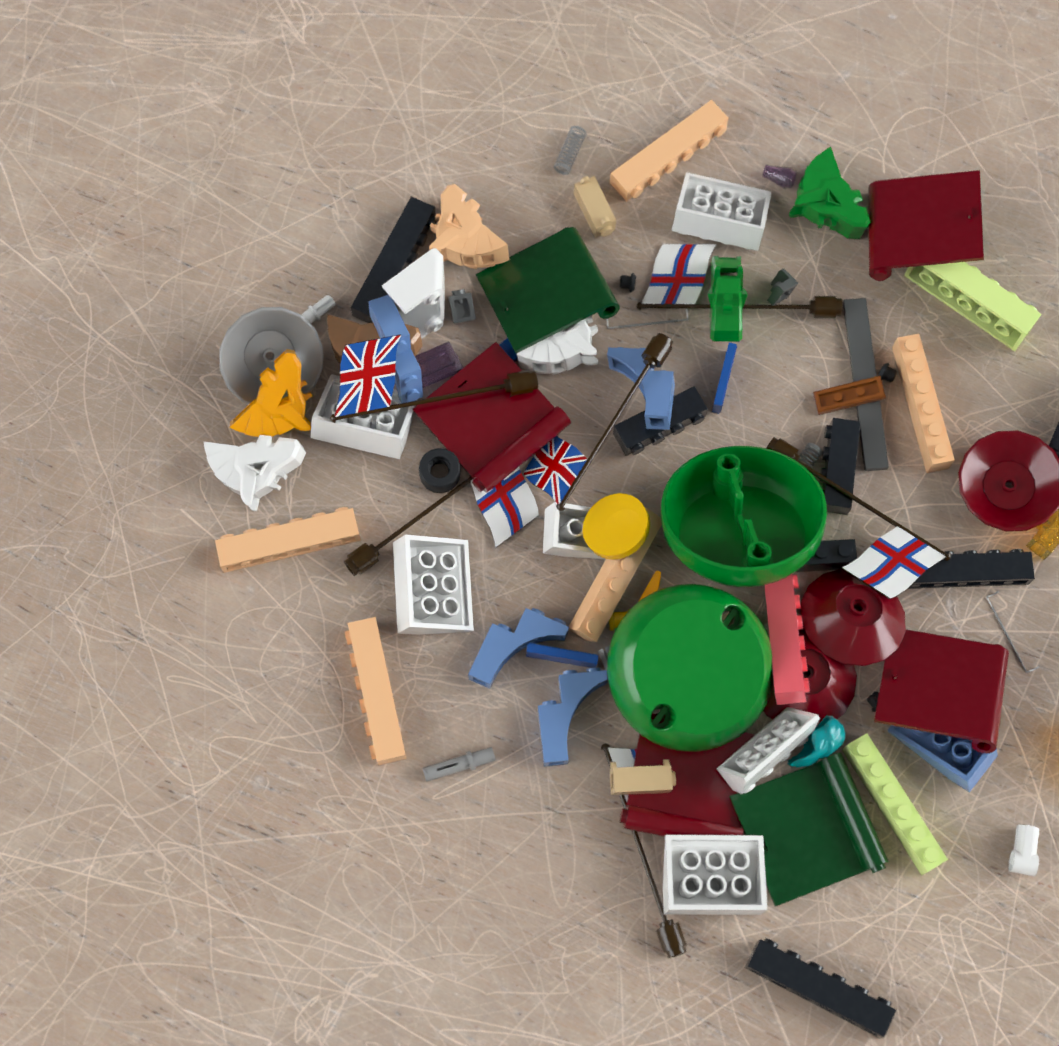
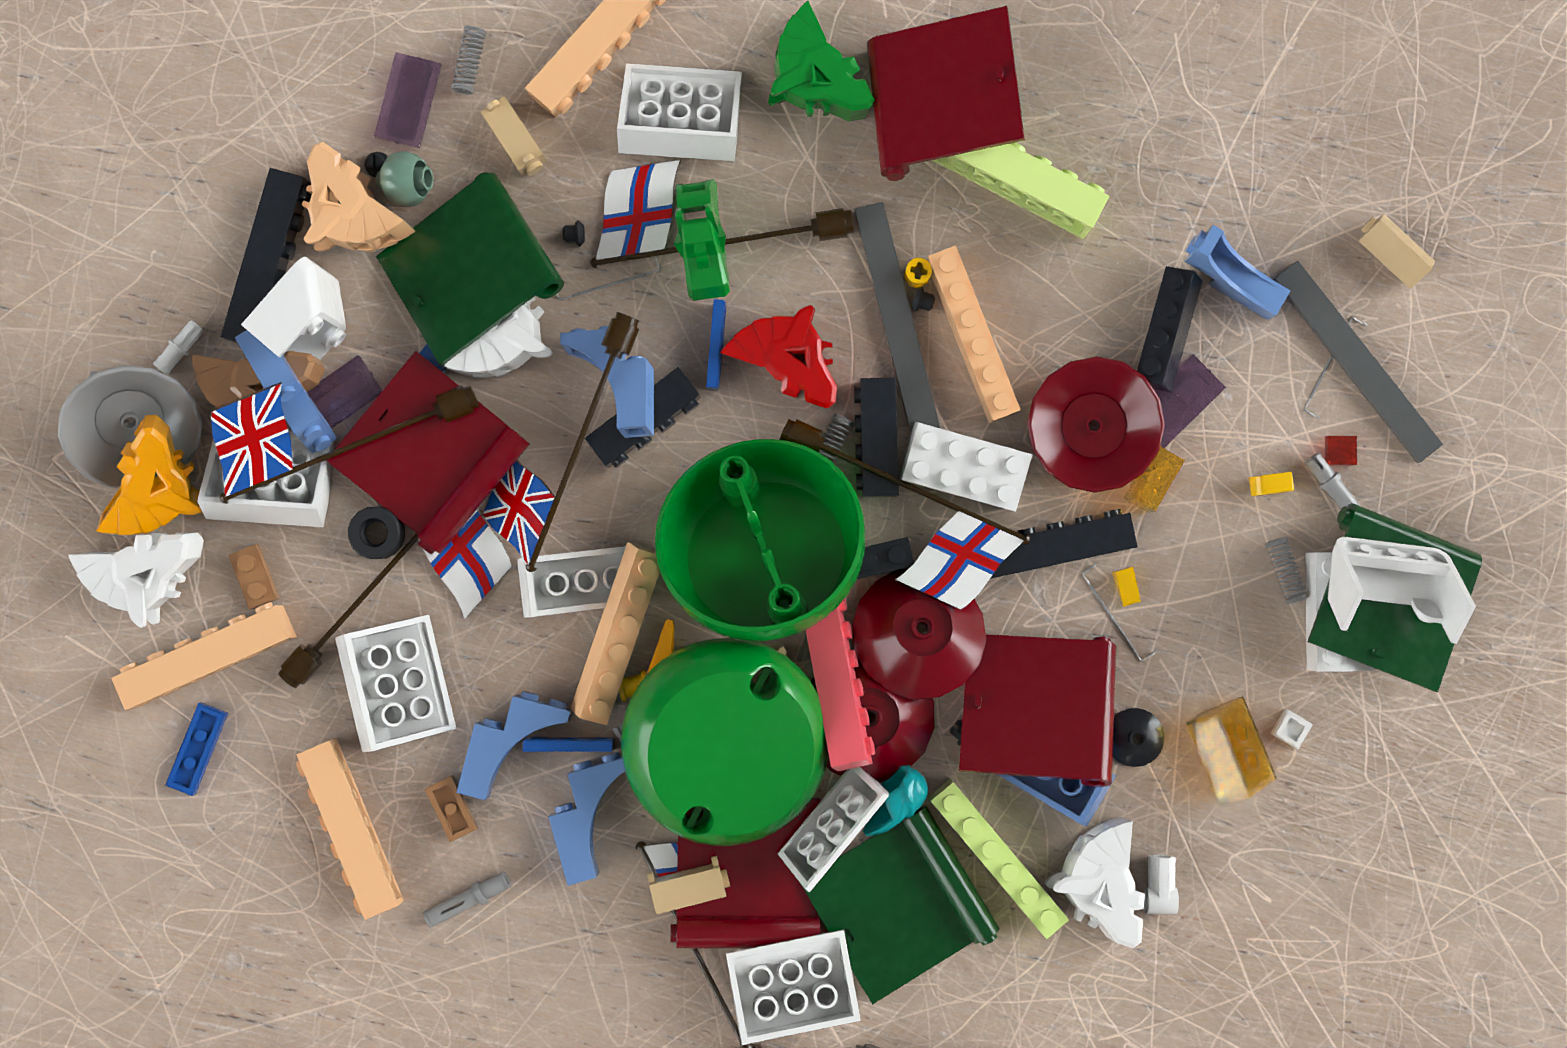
camera: 10 degrees left, 15 degrees up
(266, 610) = (196, 749): none -> blue tile
(337, 487) = (253, 576): none -> medium nougat plate
(459, 690) = (451, 808): none -> medium nougat plate
(461, 306) = (364, 305): dark grey bracket -> none
(488, 210) = (374, 162): none -> black piece
(510, 221) = (405, 179): none -> sand green plant
(519, 170) = (407, 100): none -> clear purple piece
(616, 526) = (605, 578): yellow piece -> none
(772, 386) = (771, 345): none -> red animal
(781, 176) = (751, 48): clear purple cone -> none
(782, 287) = (774, 207): dark grey bracket -> none
(849, 395) = (878, 340): dark orange tile -> none
(886, 345) = (926, 269): none -> yellow bush
(906, 496) = (965, 466): none -> white brick
(977, 838) = (1100, 883): none -> white animal
(1015, 743) = (1125, 726): none -> black dish
(1021, 611) = (1126, 586): none -> yellow piece

